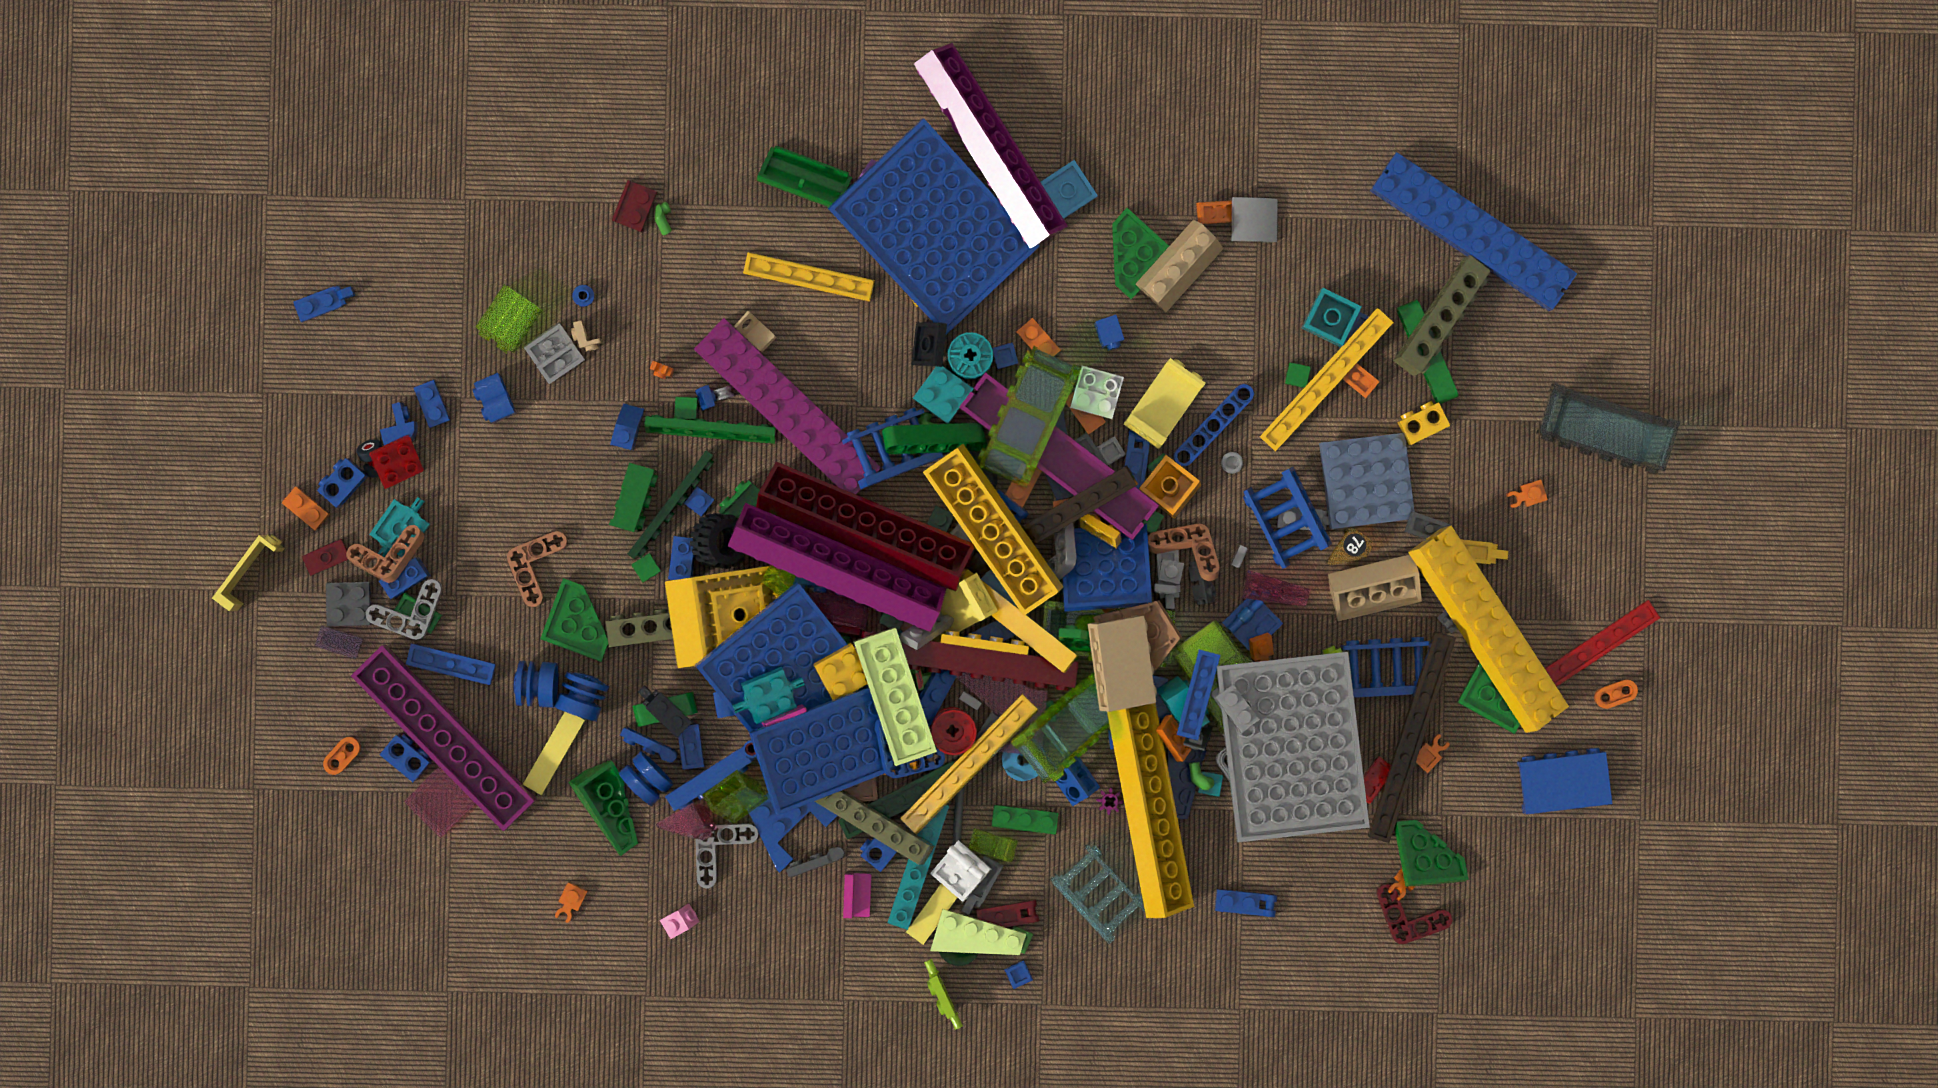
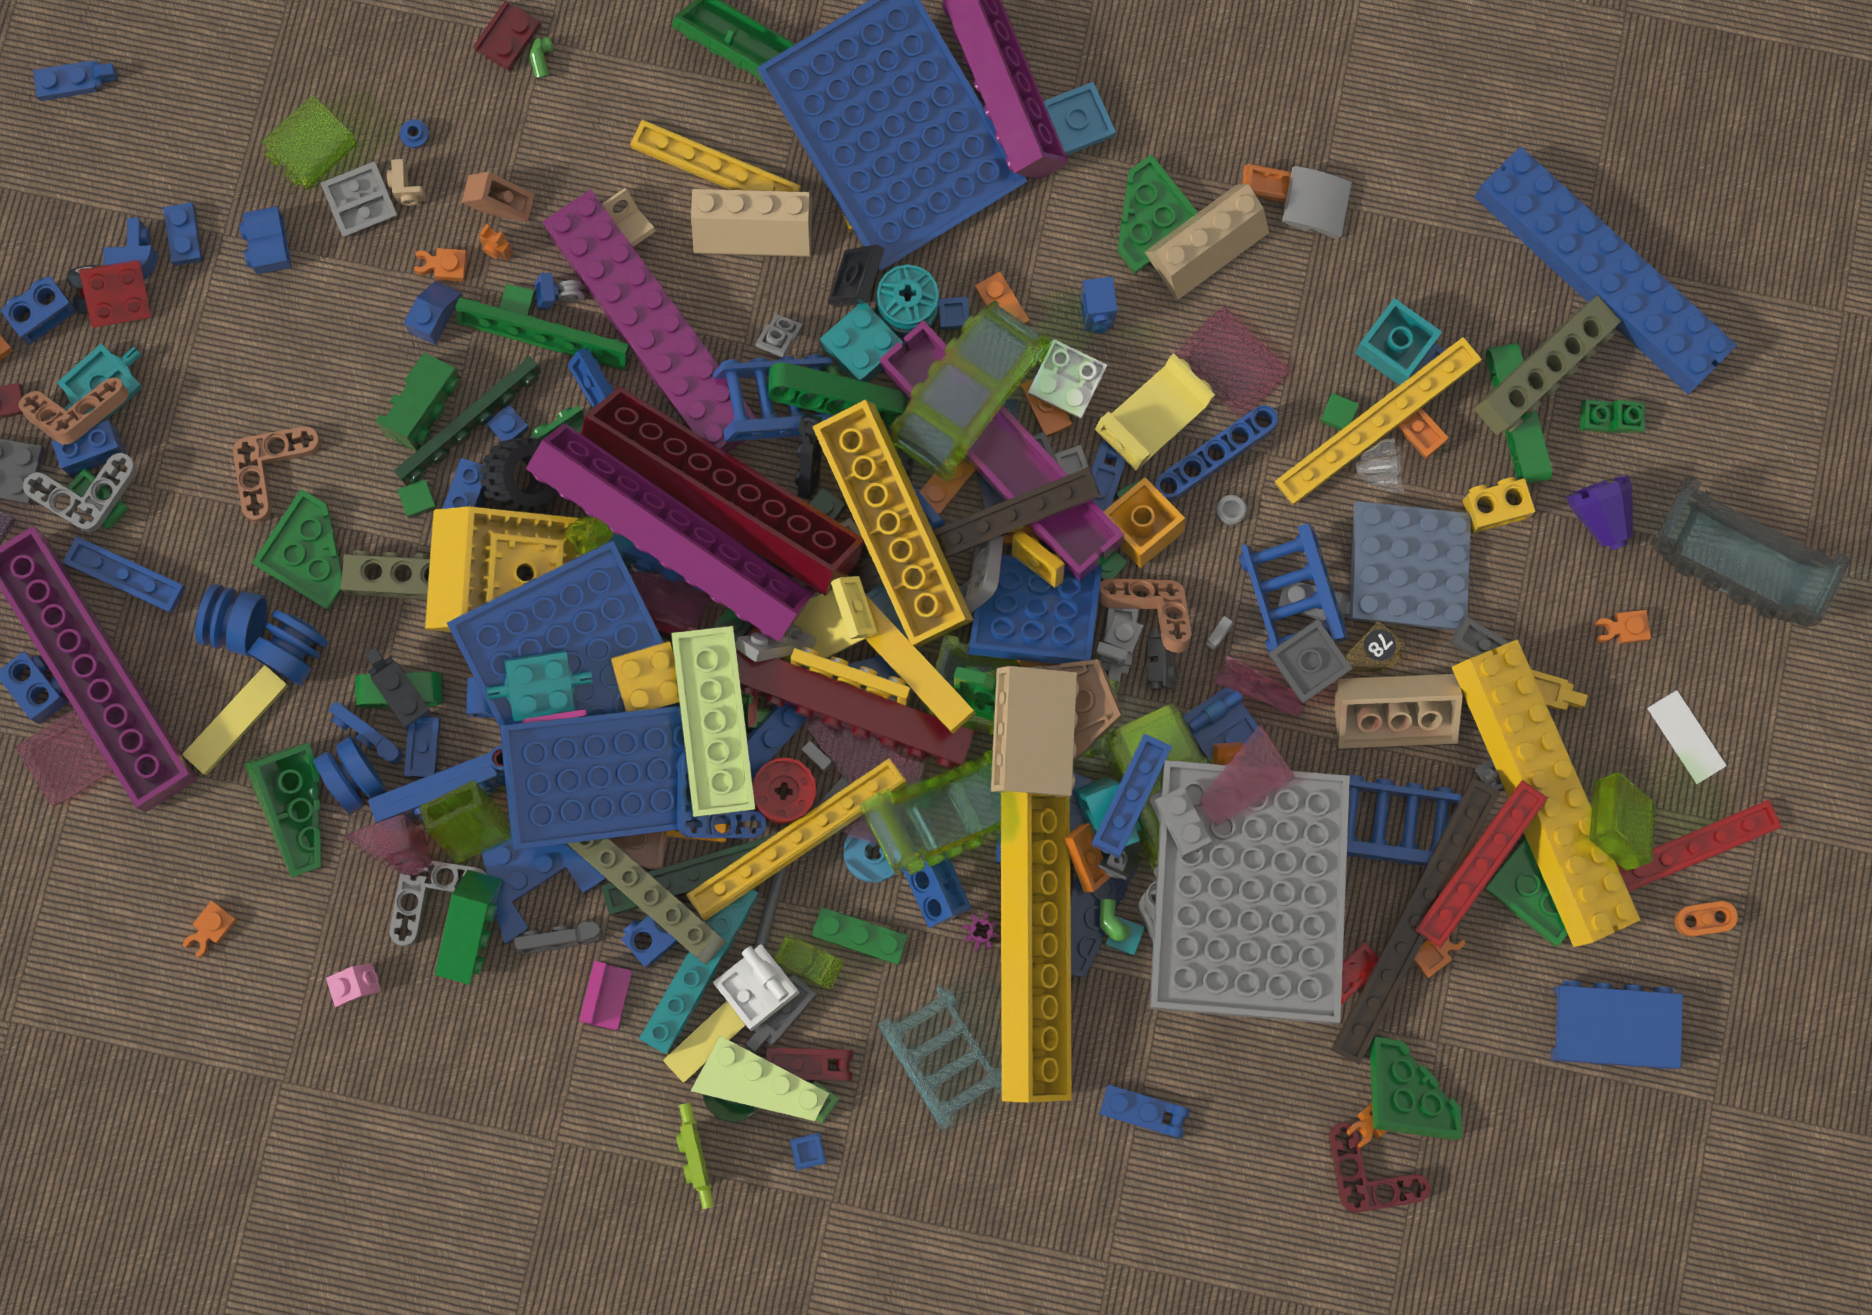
camera: 10 degrees right, 10 degrees down
(629, 389) = (447, 264): none -> orange plate
(655, 333) = (497, 197): none -> nougat slope
(752, 867) = (468, 927): none -> green wedge
(753, 457) = (589, 377): none -> blue plate
(845, 317) = (751, 222): none -> tan slope
(882, 399) = (779, 335): none -> light grey slope
(923, 487) = (810, 457): none -> black hinge
(1213, 352) = (1232, 362): none -> clear pink piece
(1278, 666) = (1246, 779): none -> clear pink wing
(1306, 568) = (1309, 661): none -> dark grey plate
(1335, 411) = (1382, 466): none -> clear brick
(1450, 691) = (1481, 863): none -> red tile
(1495, 339) = (1612, 417): none -> green slope
(1500, 412) = (1606, 510): none -> dark purple cone
(1546, 640) = (1622, 821): none -> clear neon green brick
(1584, 564) = (1686, 737): none -> white sticker

